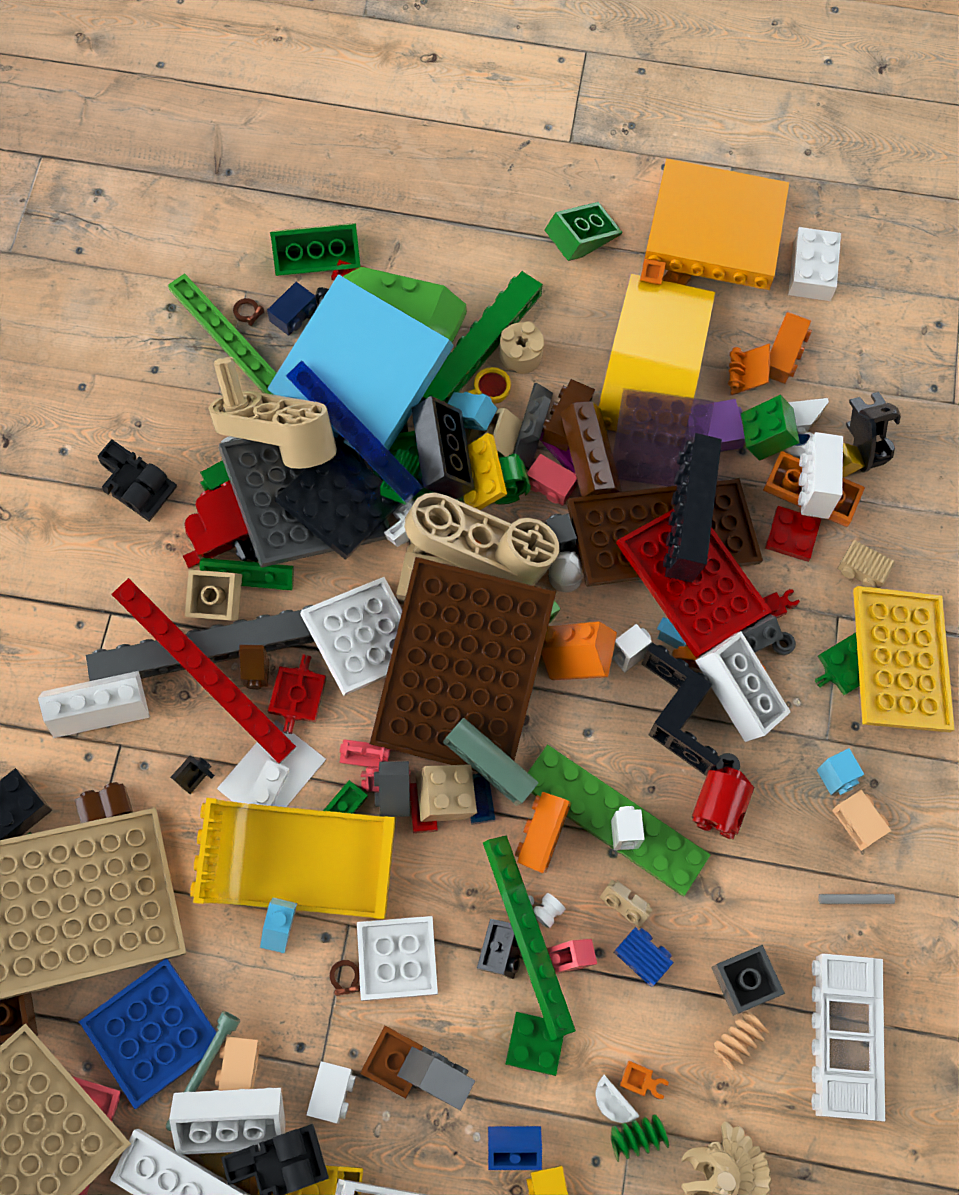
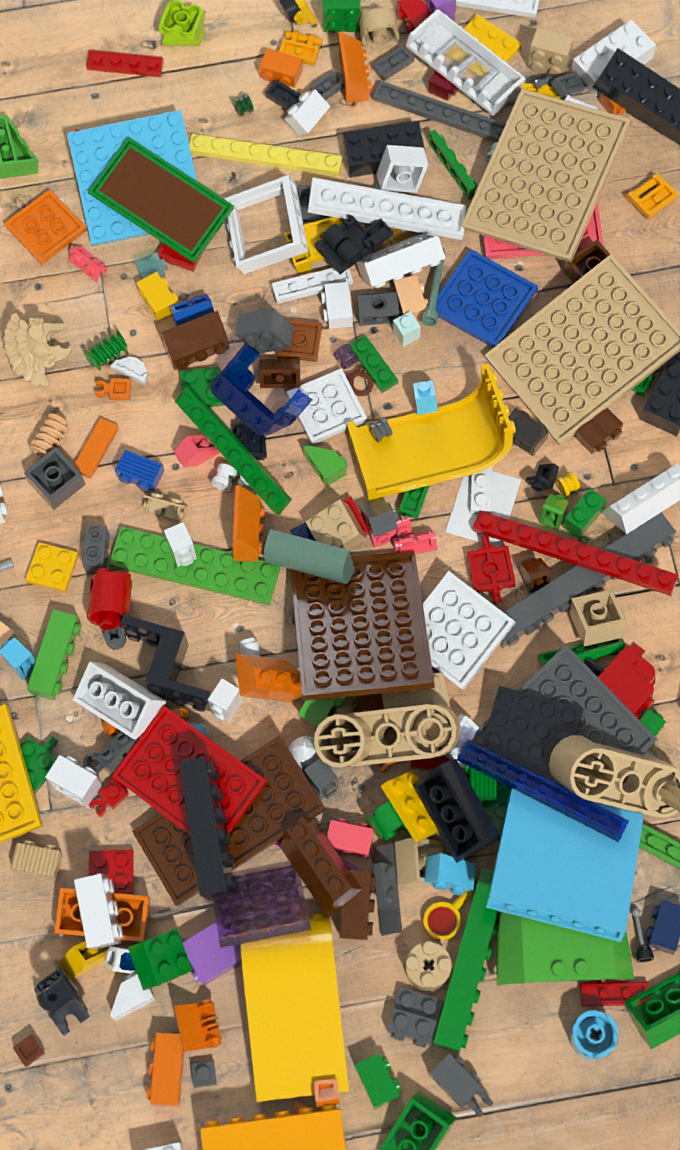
camera: 165 degrees right, 0 degrees up
(169, 715) = (584, 513): none -> green brick
(170, 756) = (568, 484): none -> yellow wheel
(182, 831) = (529, 433): none -> clear smoke brick
(199, 729) = (554, 511): none -> bright green slope
(261, 1023) = (406, 328): none -> light aqua brick
(267, 1065) = (371, 316): none -> dark grey brick
(319, 997) = (374, 364): none -> green plate
(348, 897) = (380, 429): none -> dark grey wheel
(348, 1015) = (346, 356): none -> clear purple wheel
(358, 1139) = (308, 284): none -> white plate
(399, 246) = (597, 1022): none -> medium azure brick
(425, 882) = (326, 463): none -> bright green slope
(436, 1019) = (279, 373): none -> reddish brown brick
(490, 986) = (232, 390): none -> clear blue windscreen
(524, 1102) = (195, 340): none -> reddish brown slope
(532, 253) = (459, 1083): none -> dark grey hinge
(551, 315) = (414, 1017): none -> dark grey plate
(585, 698) = (249, 647): none -> white cone
(602, 278) = (377, 1080): none -> green brick
(686, 1011) = (95, 447): none -> orange tile
(721, 874) = (95, 548): none -> dark grey brick
(753, 337) = (204, 1074): none -> dark grey plate
(775, 877) = (52, 567): none -> yellow plate
(798, 769) = (54, 655): none -> bright green brick
(810, 621) = (73, 781): none -> white brick
(910, 405) = (28, 1050): none -> copper plate

